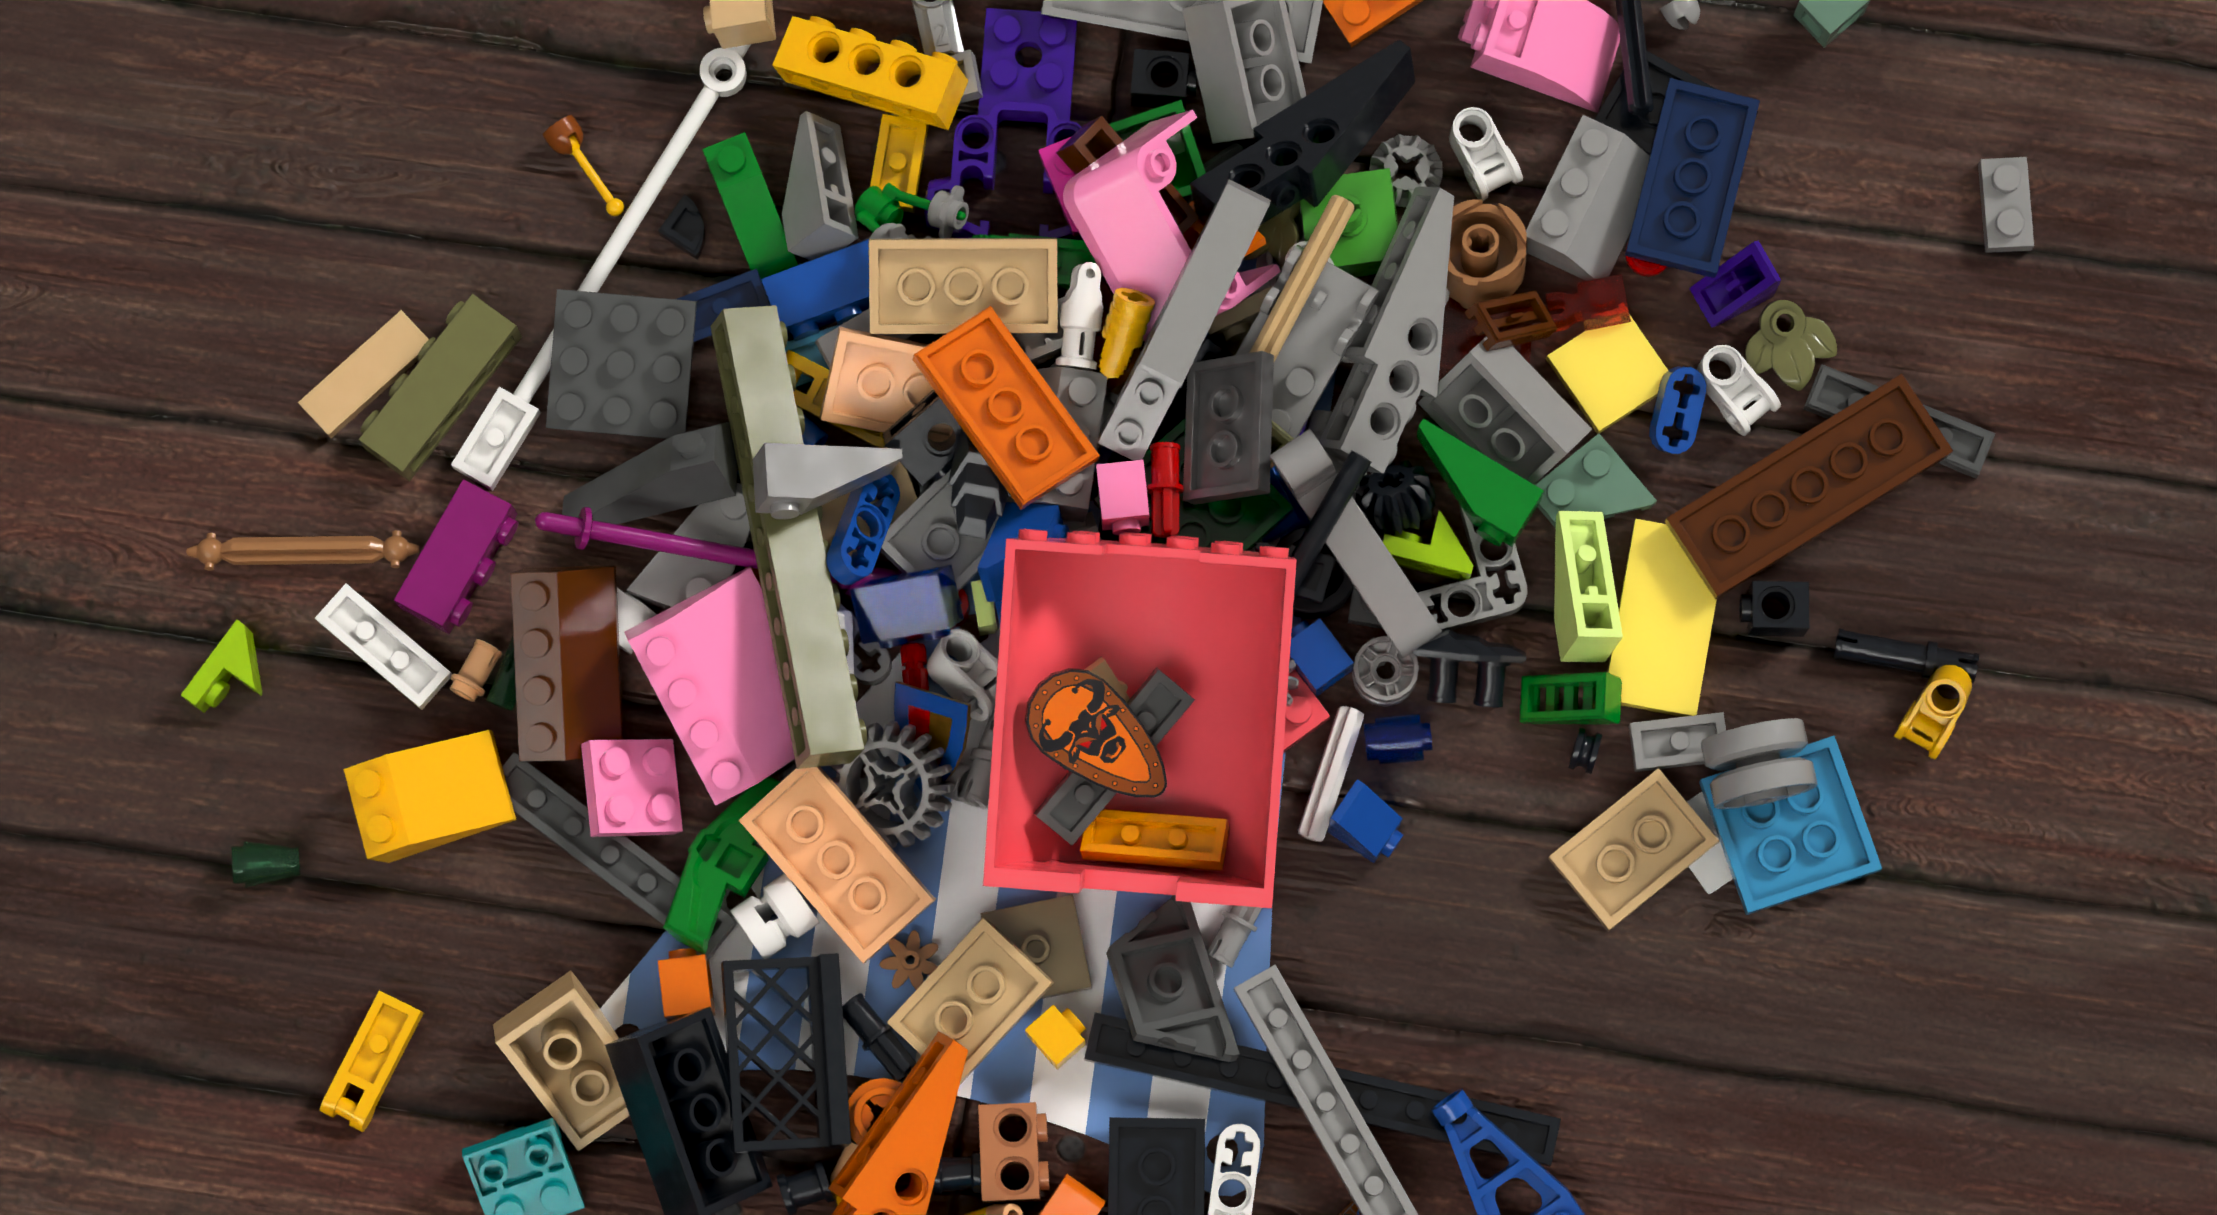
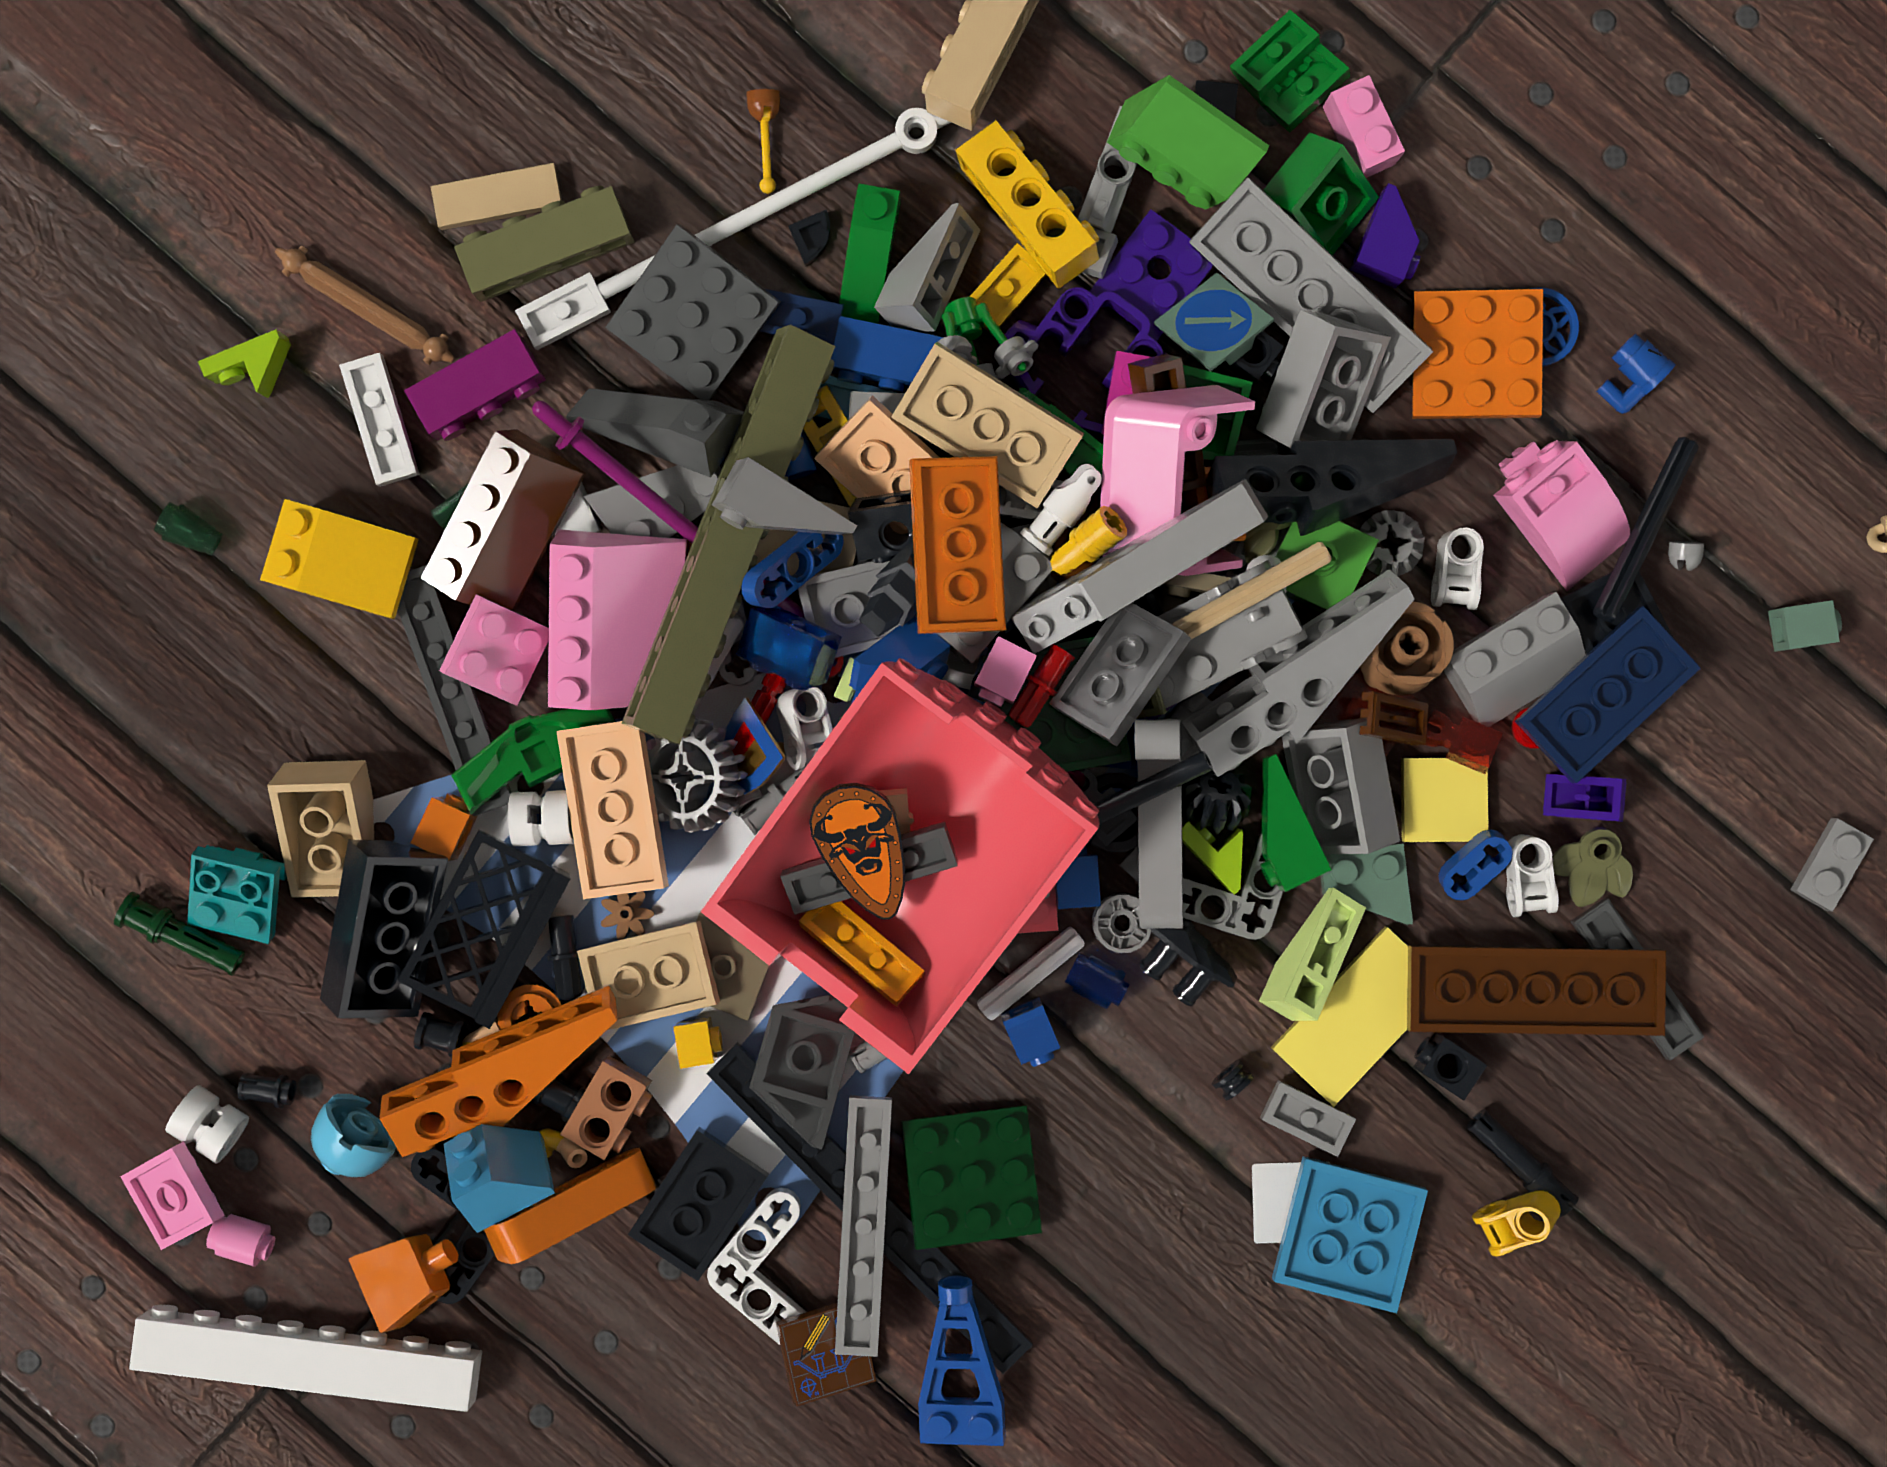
camera: 25 degrees right, 10 degrees up
(371, 1059) = (179, 731): yellow plate -> none
(475, 671) = (437, 482): light nougat pin -> none
(1112, 70) = (1214, 323): none -> piece
(1398, 997) = (971, 1177): none -> dark green plate
(1599, 706) = (1274, 1055): green slope -> none
(1633, 849) = (1219, 1177): tan plate -> none
(1758, 763) = (1354, 1191): light grey wheel -> none

